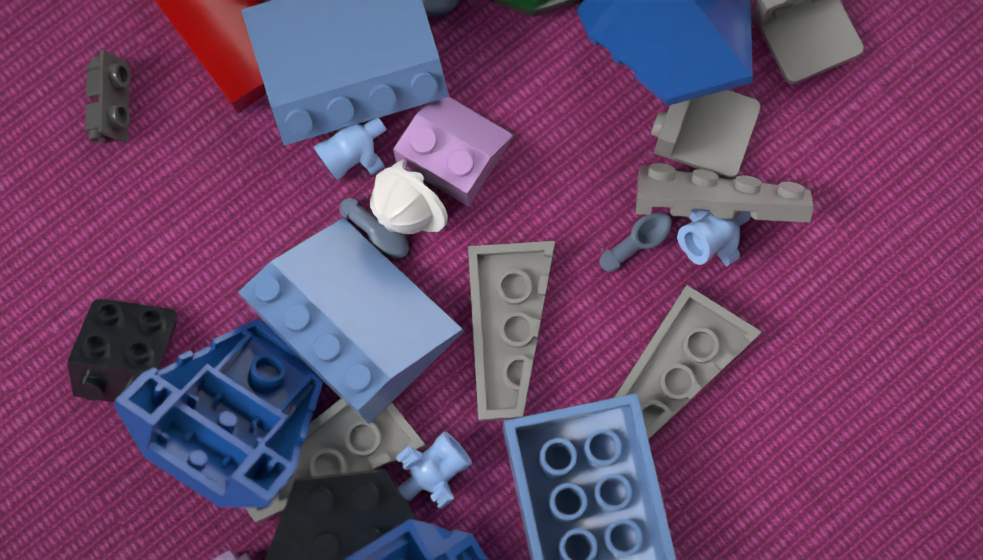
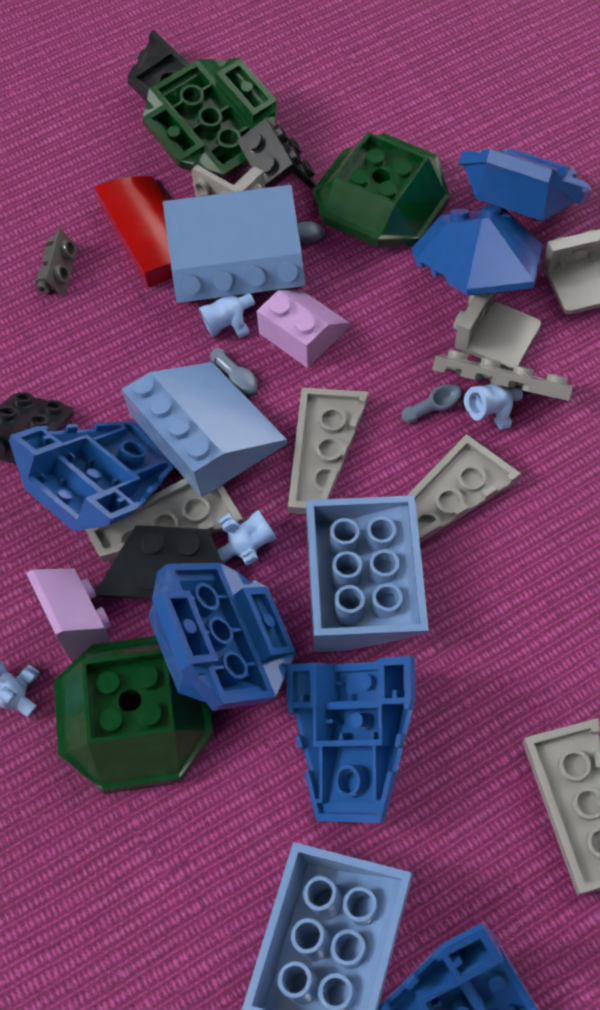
camera: 10 degrees right, 15 degrees down
(405, 203) = (261, 349): white piece -> none

